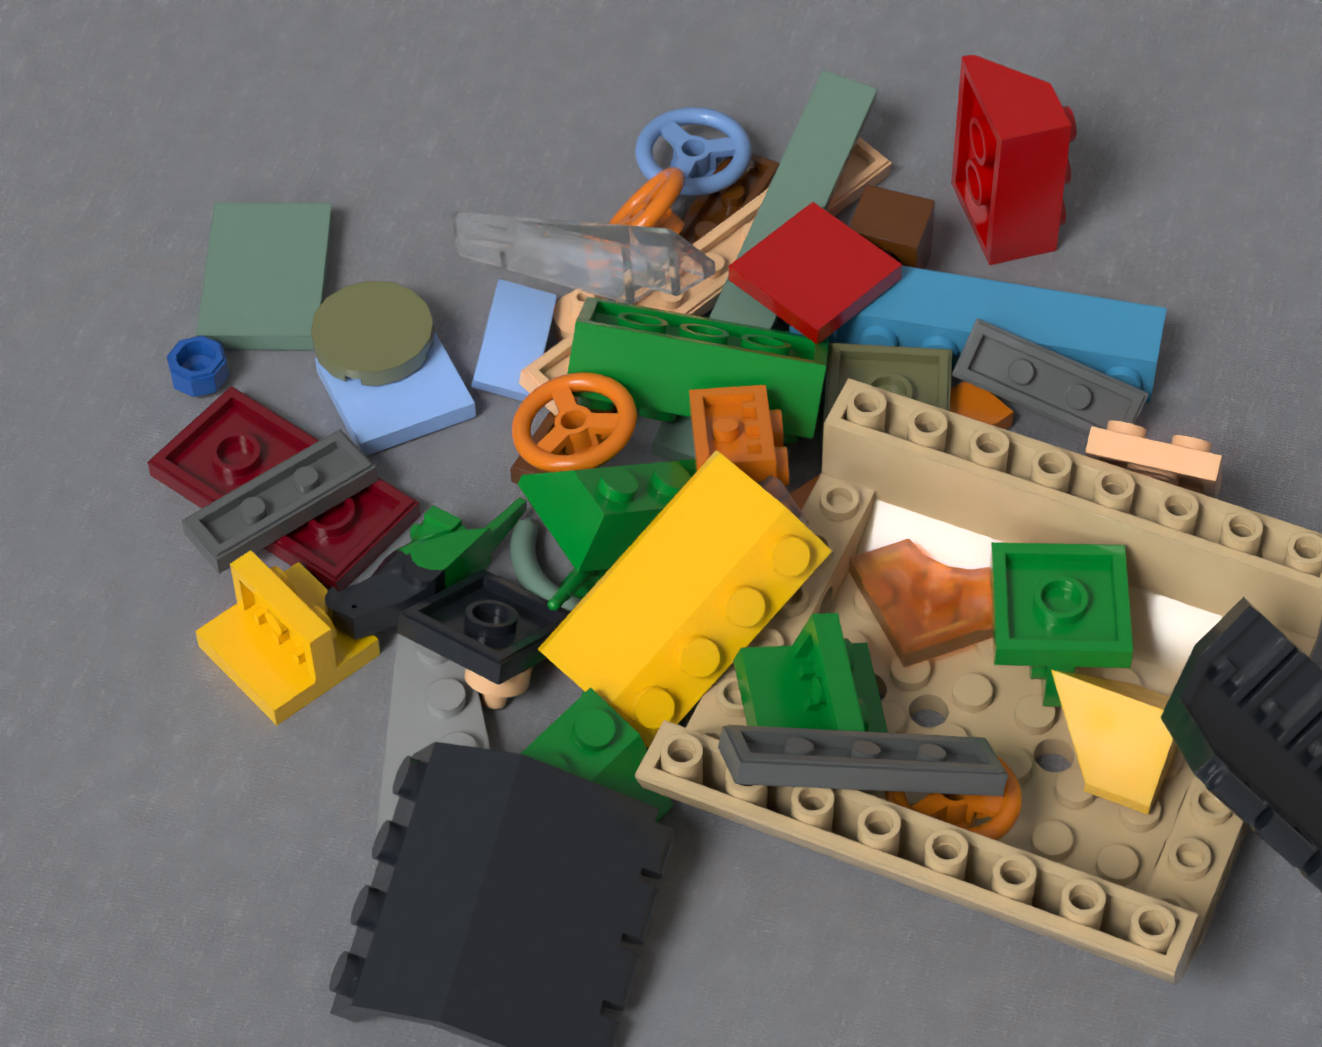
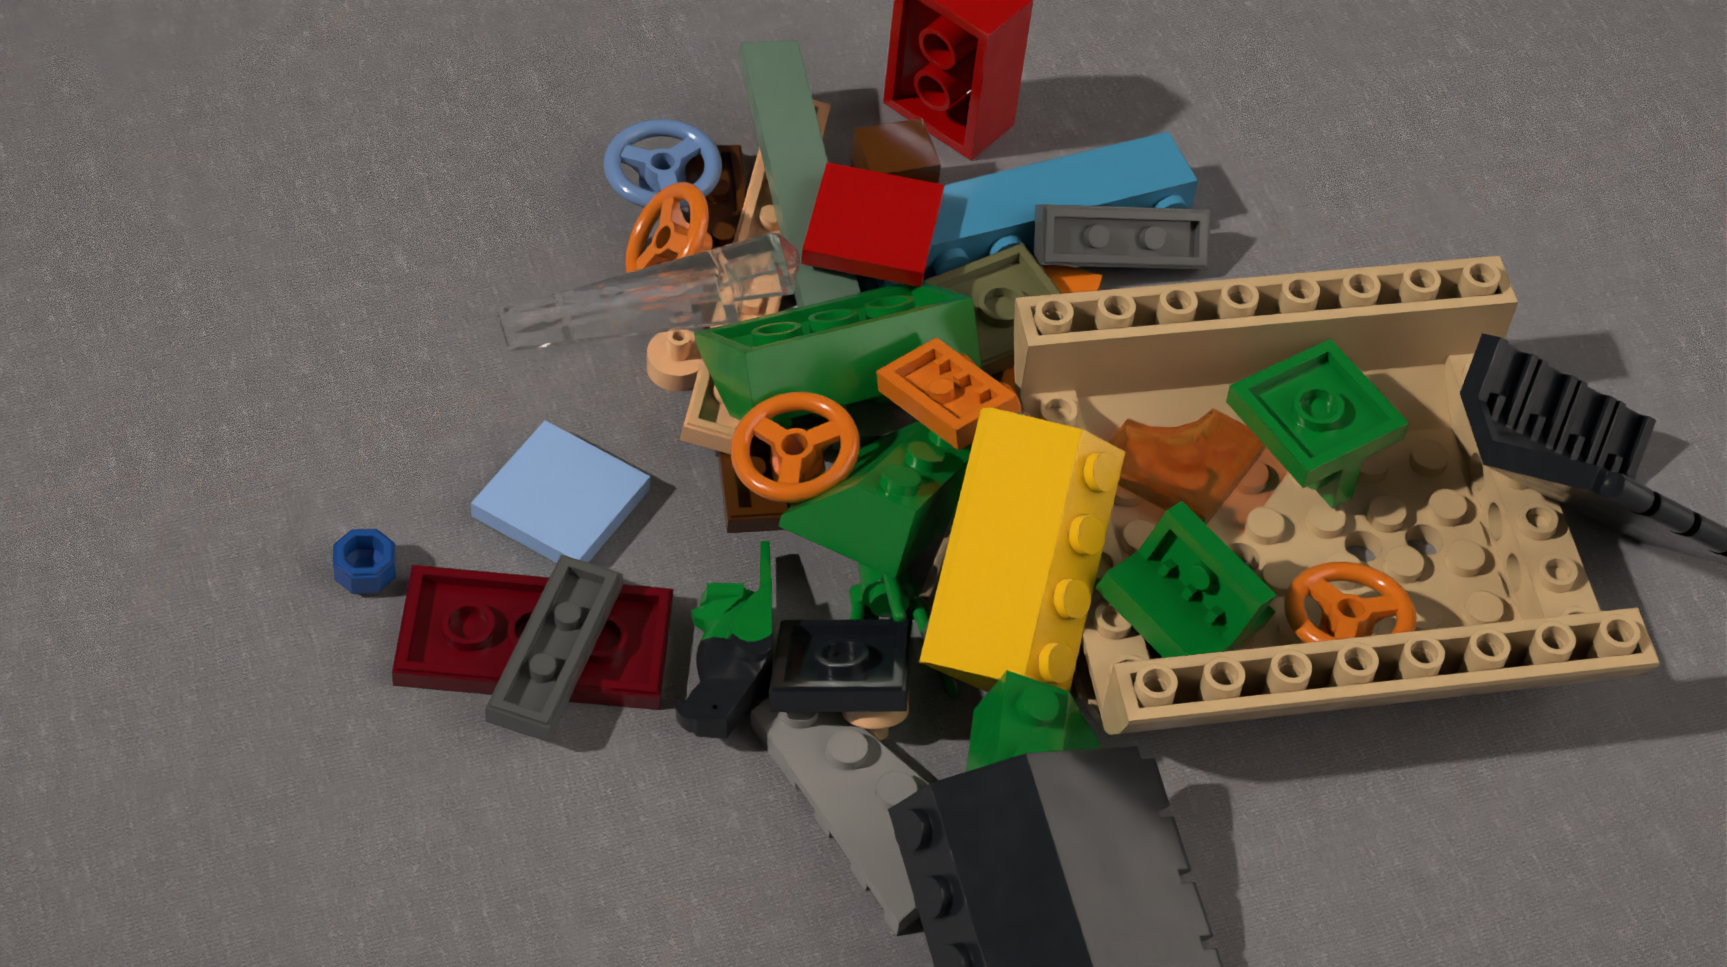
camera: 40 degrees left, 0 degrees up
(265, 274) = (354, 448): sand green tile -> none
(280, 639) = (653, 774): yellow bracket -> none
(372, 332) = (512, 454): olive tile -> none
(512, 338) = (643, 402): light blue slope -> none
(526, 564) = (819, 603): sand green piece -> none
(861, 760) = (1295, 616): dark grey tile -> none
(1117, 737) = (1432, 500): yellow slope -> none
(1182, 463) = (1320, 249): light nougat plate -> none

